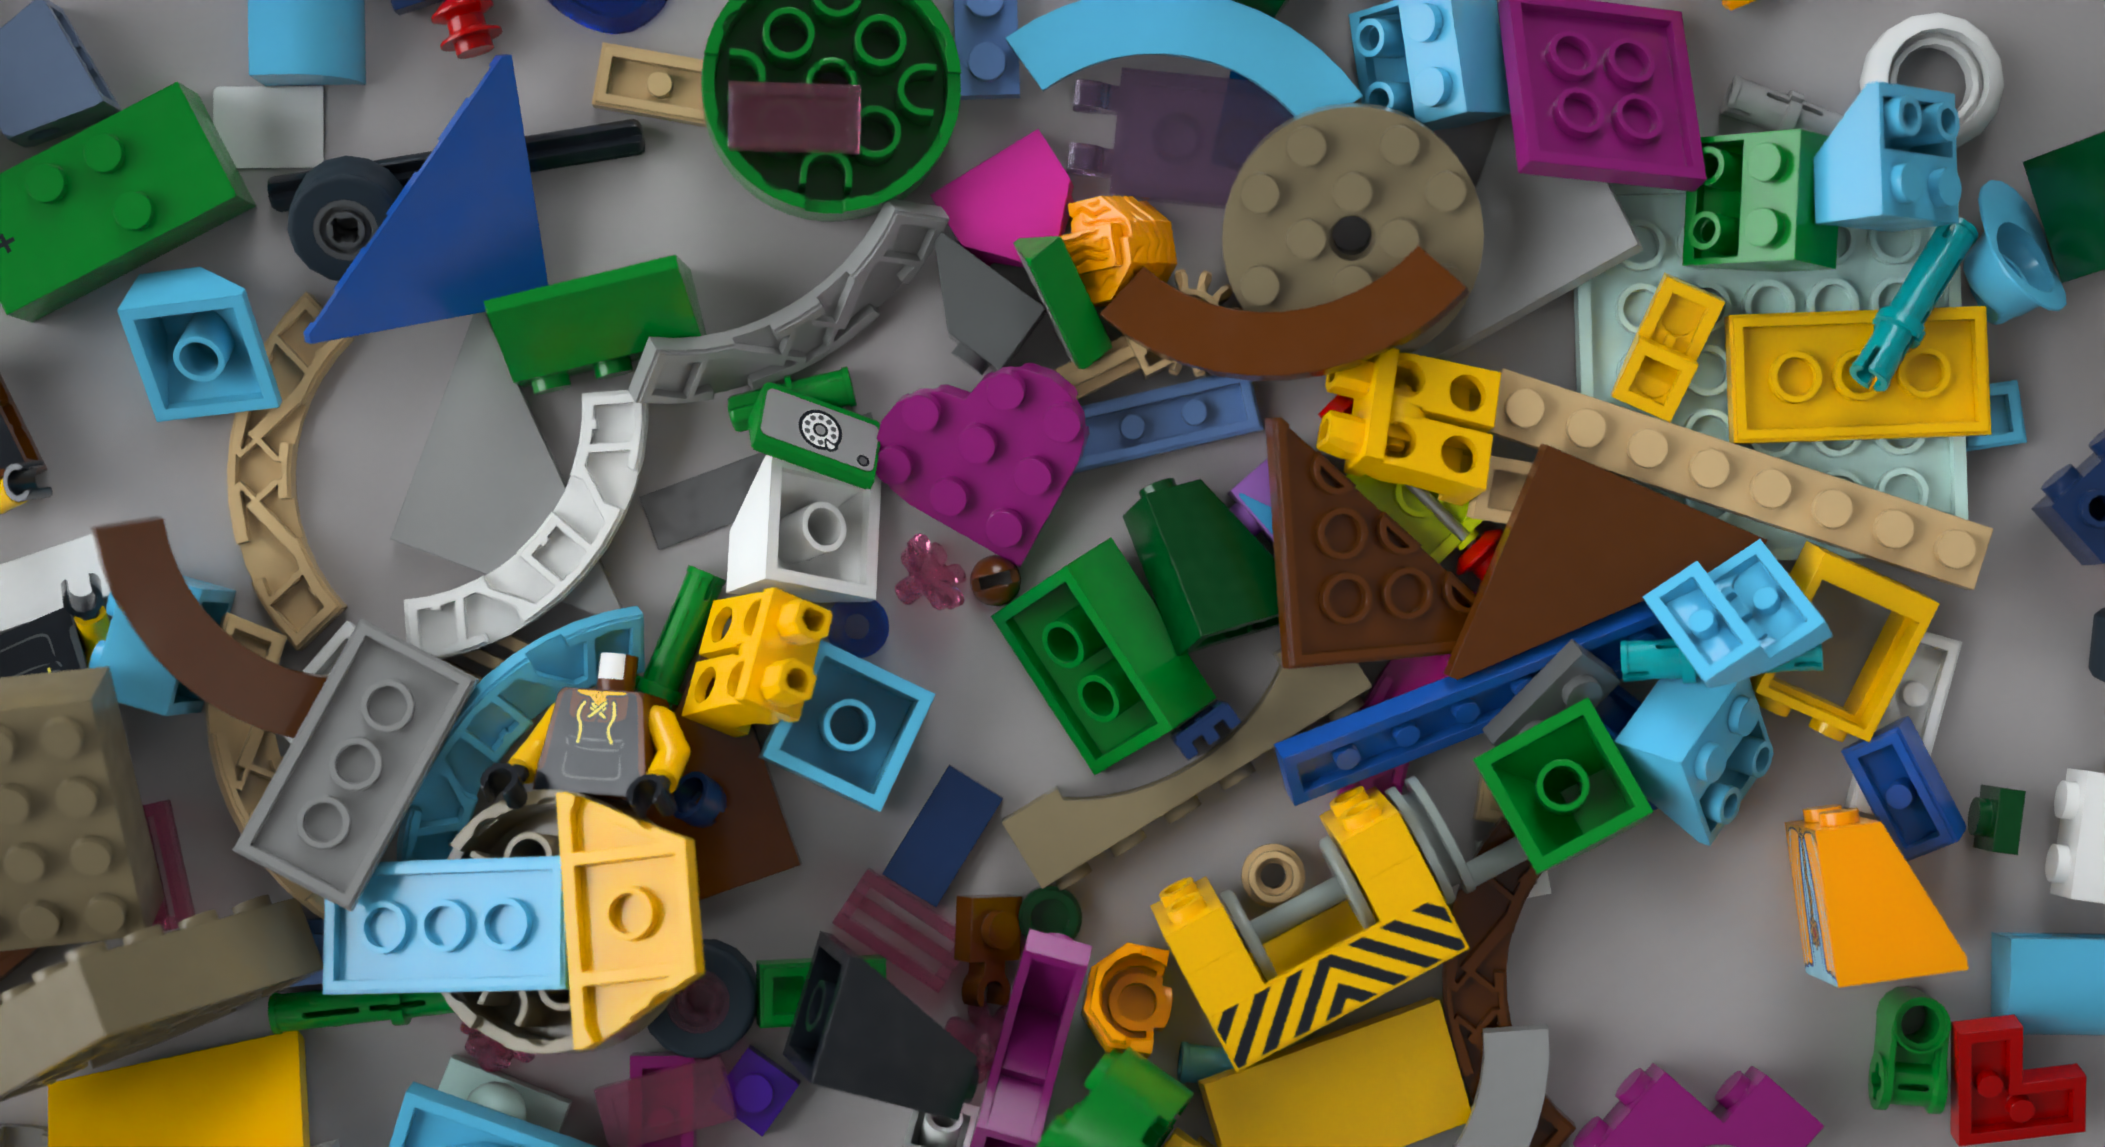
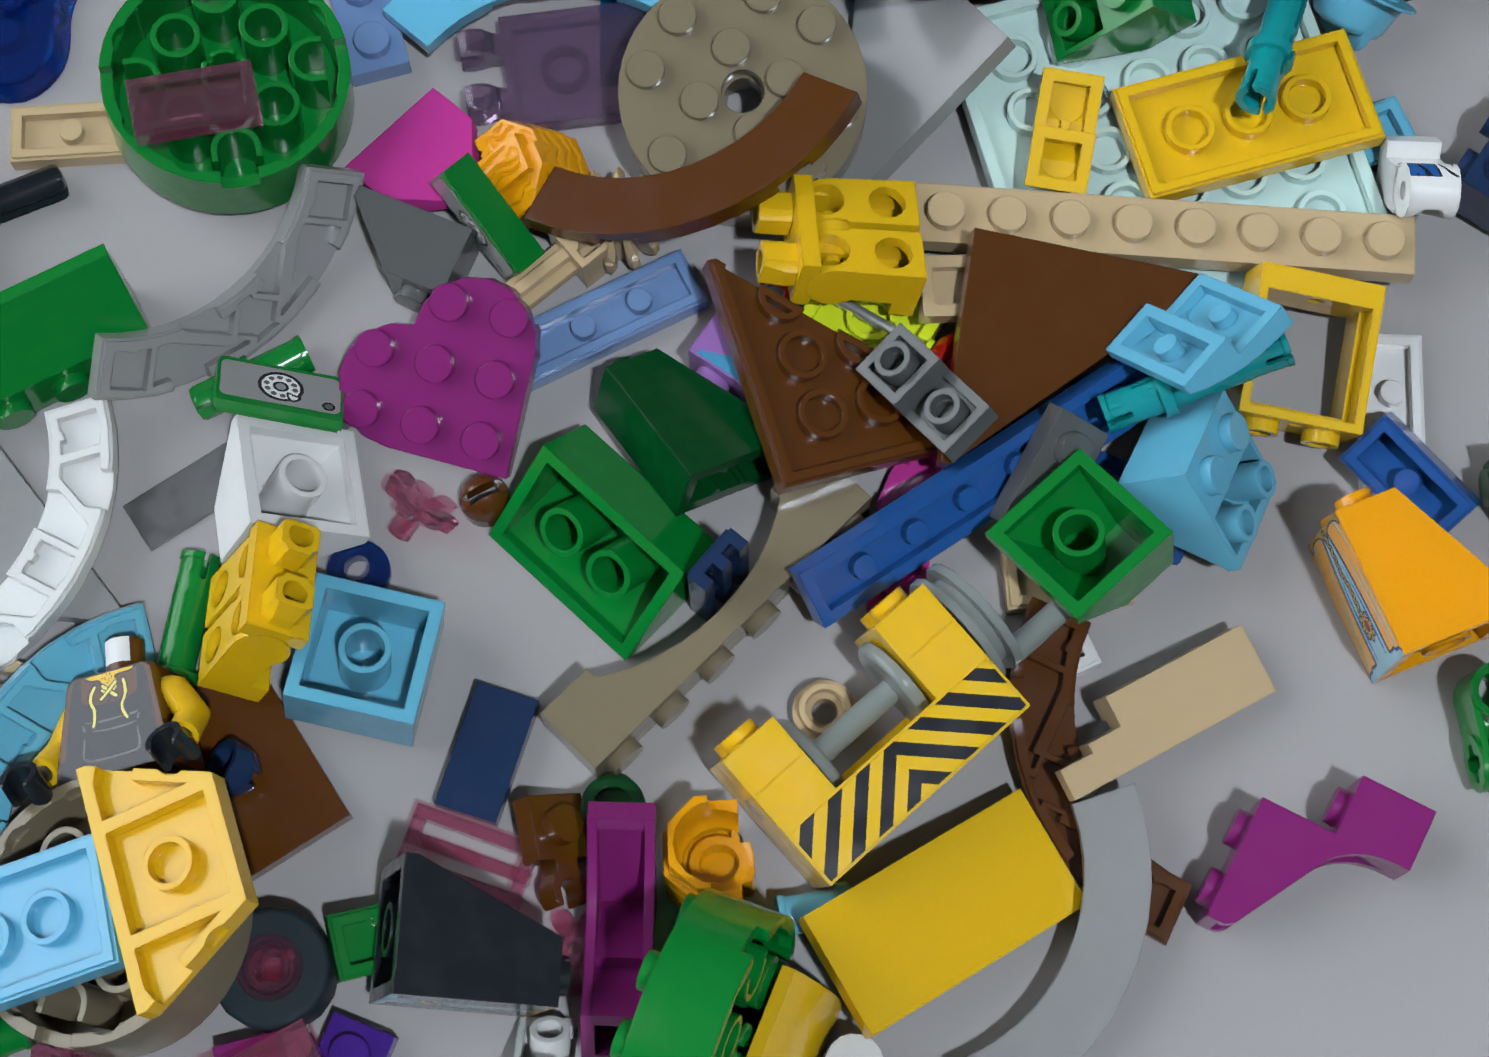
camera: 10 degrees left, 15 degrees down
(1453, 606) = (927, 392): none -> dark grey slope
(1601, 957) = (1168, 708): none -> tan piece
(2007, 487) = (1415, 179): none -> white leg

